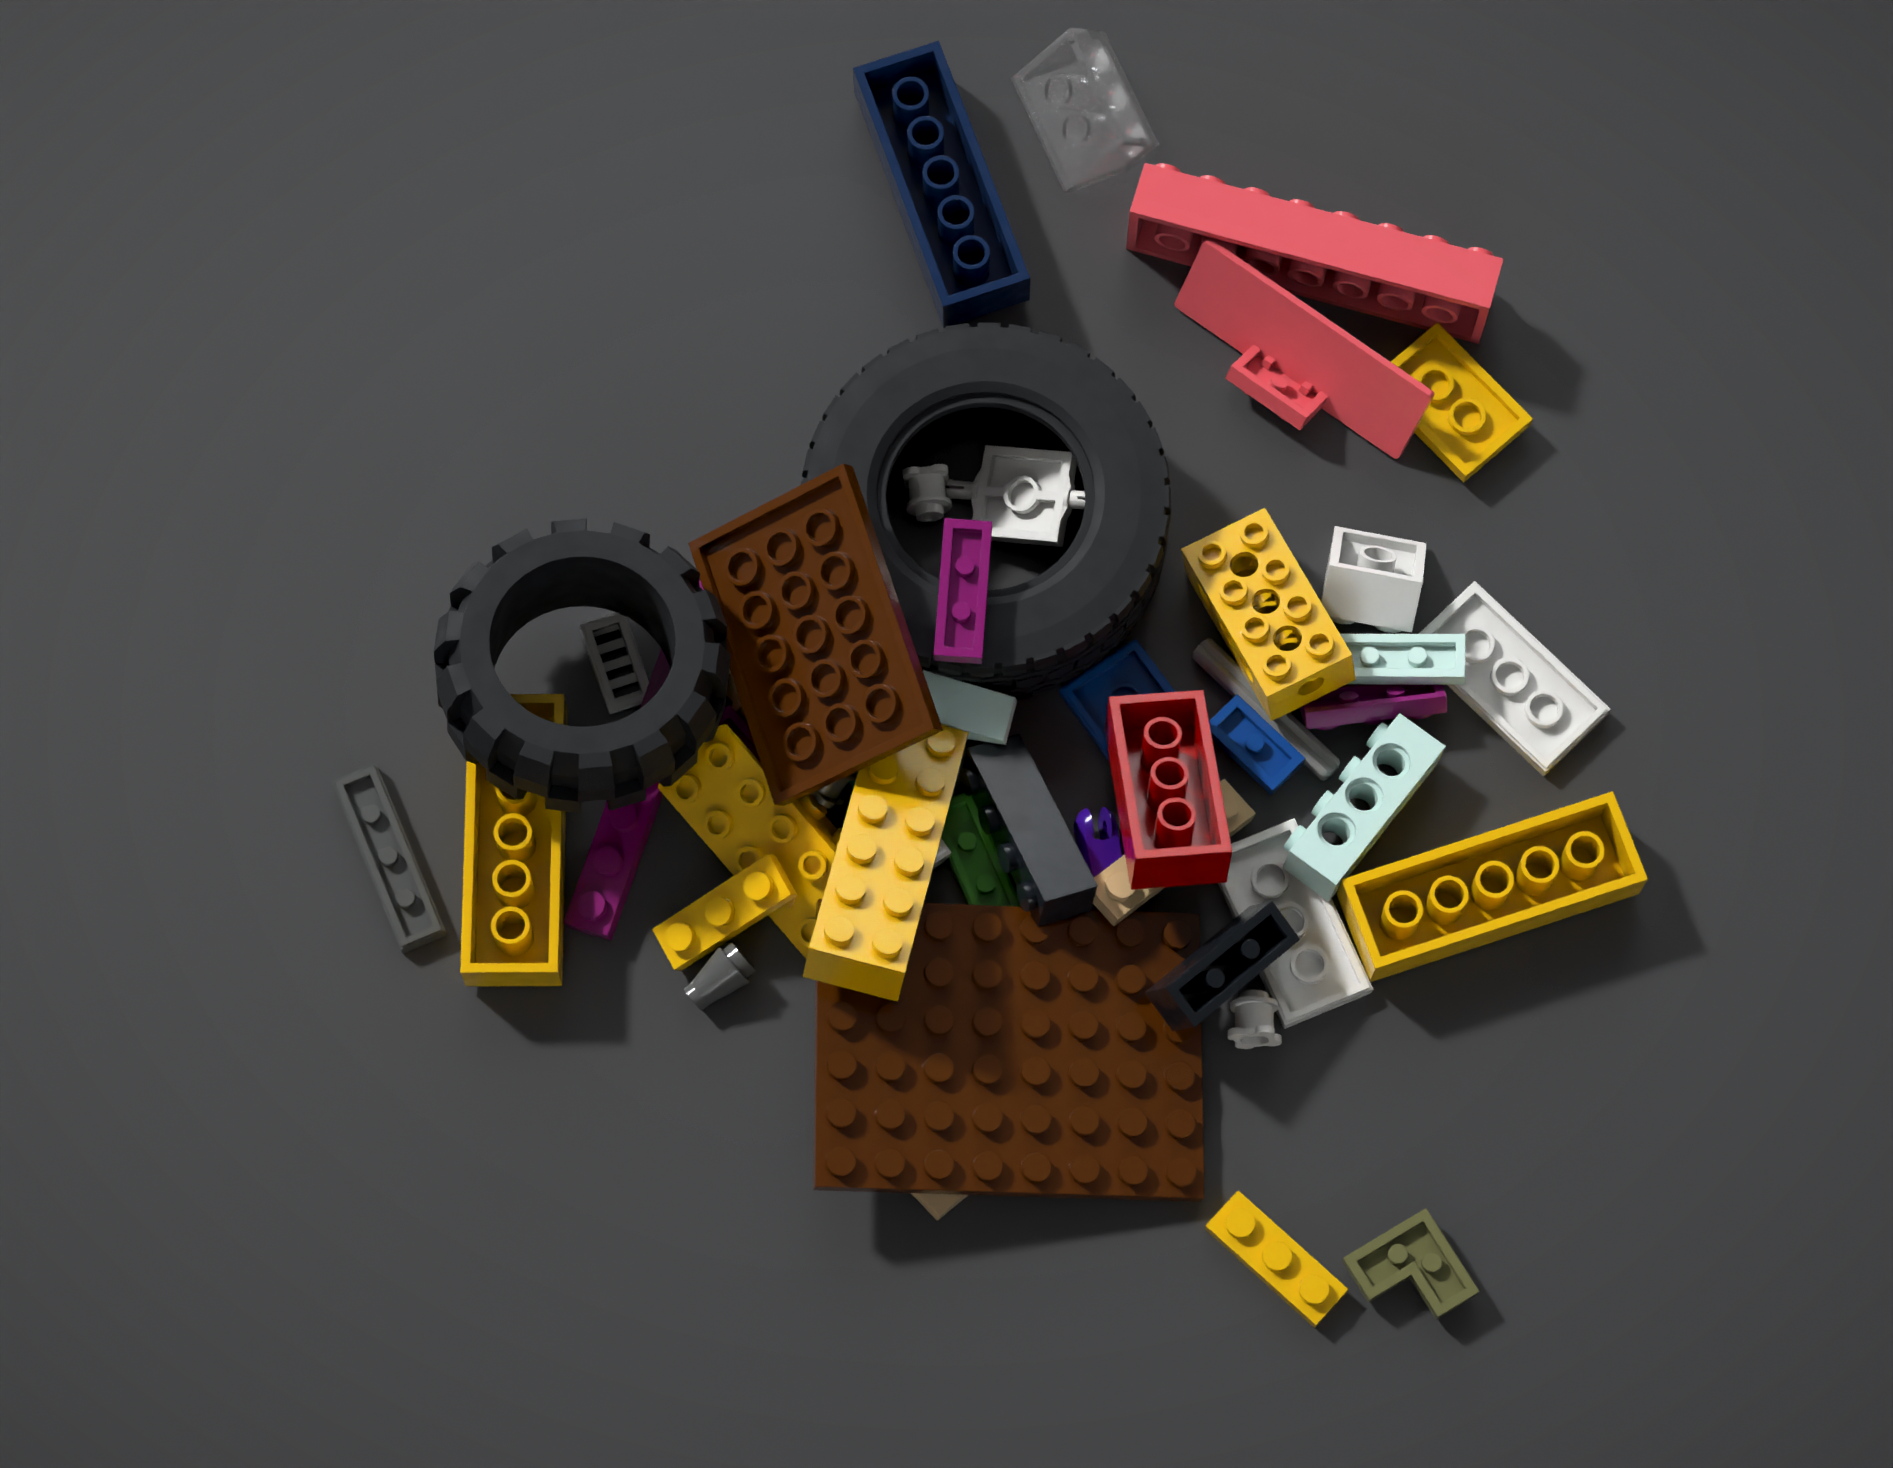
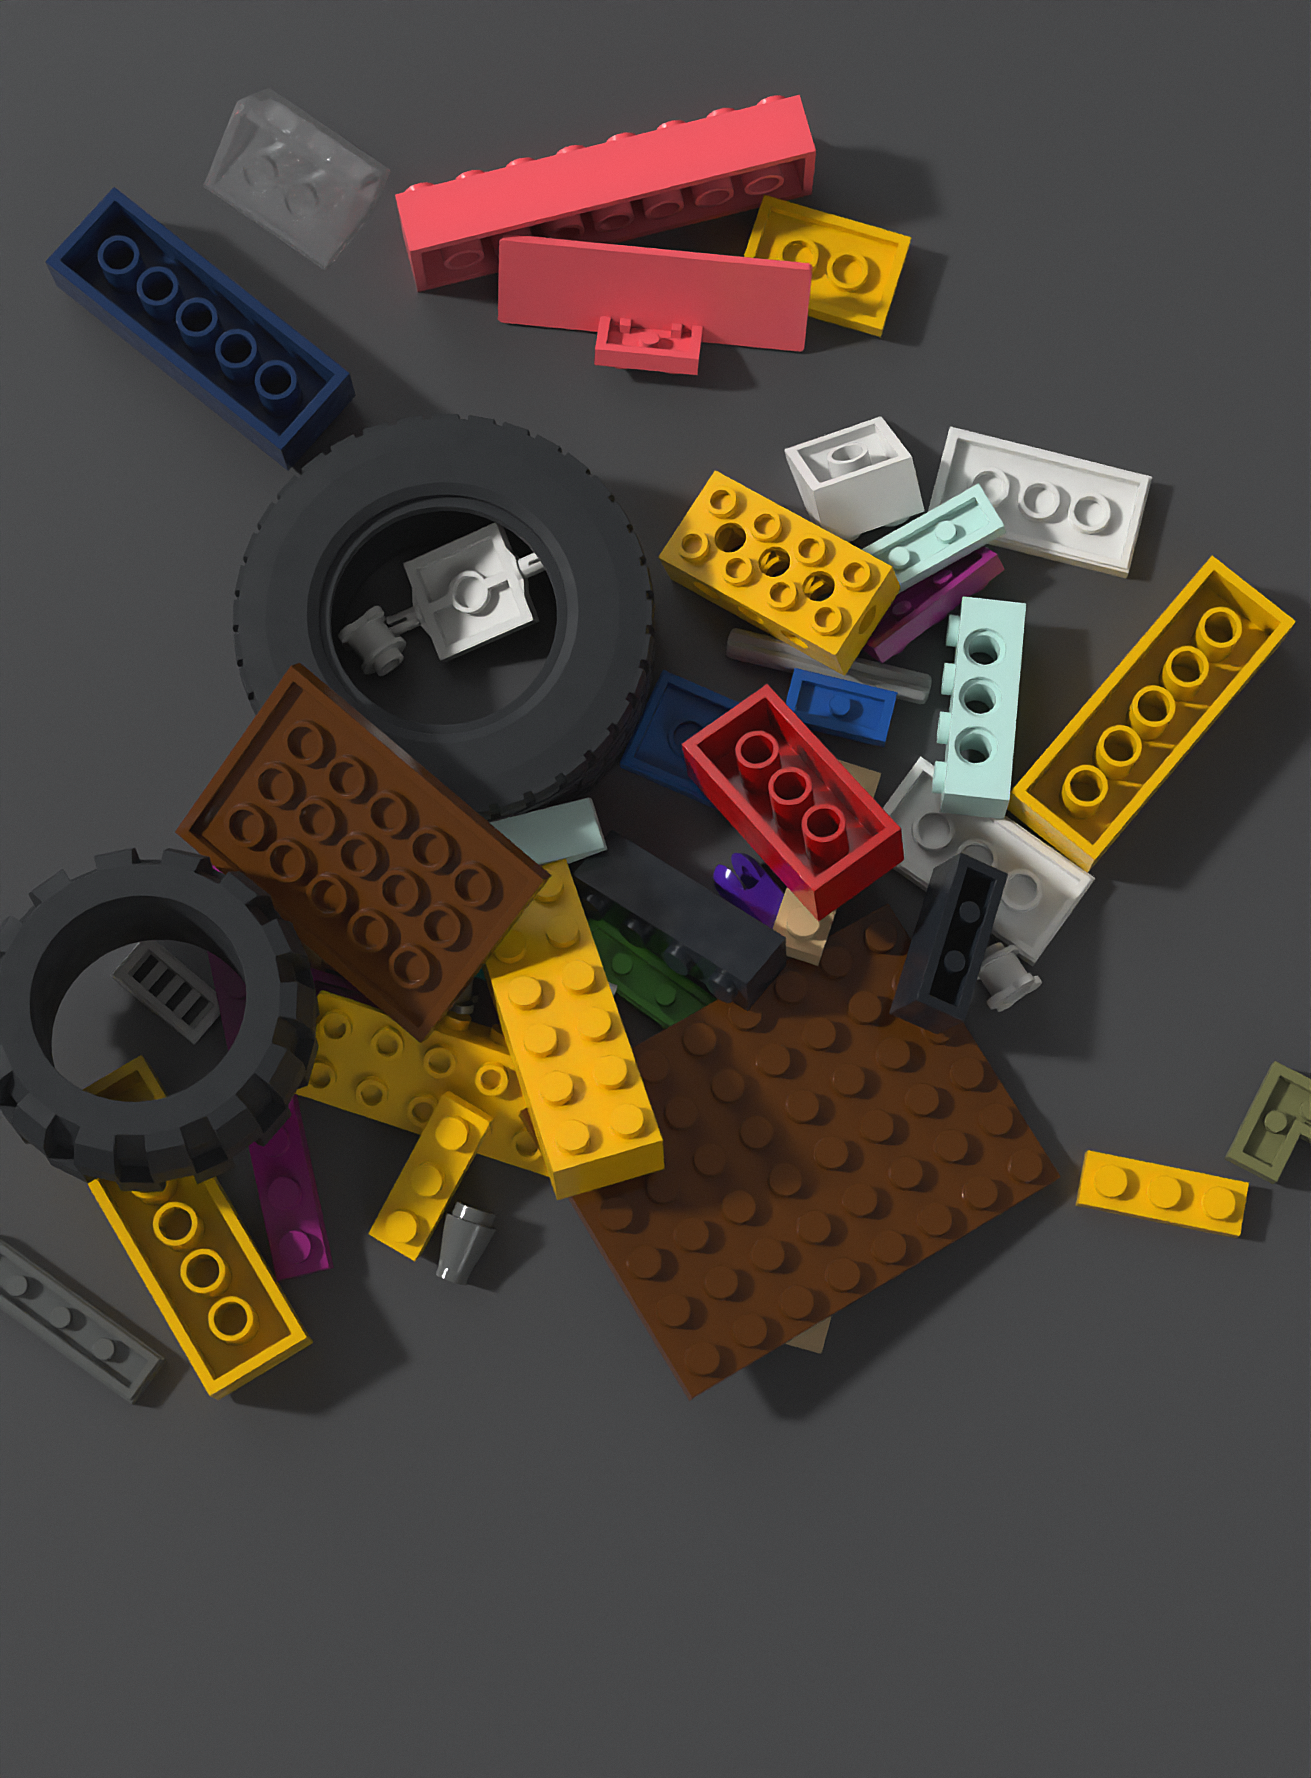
camera: 30 degrees left, 5 degrees up
(963, 591) = (483, 723): magenta plate -> none

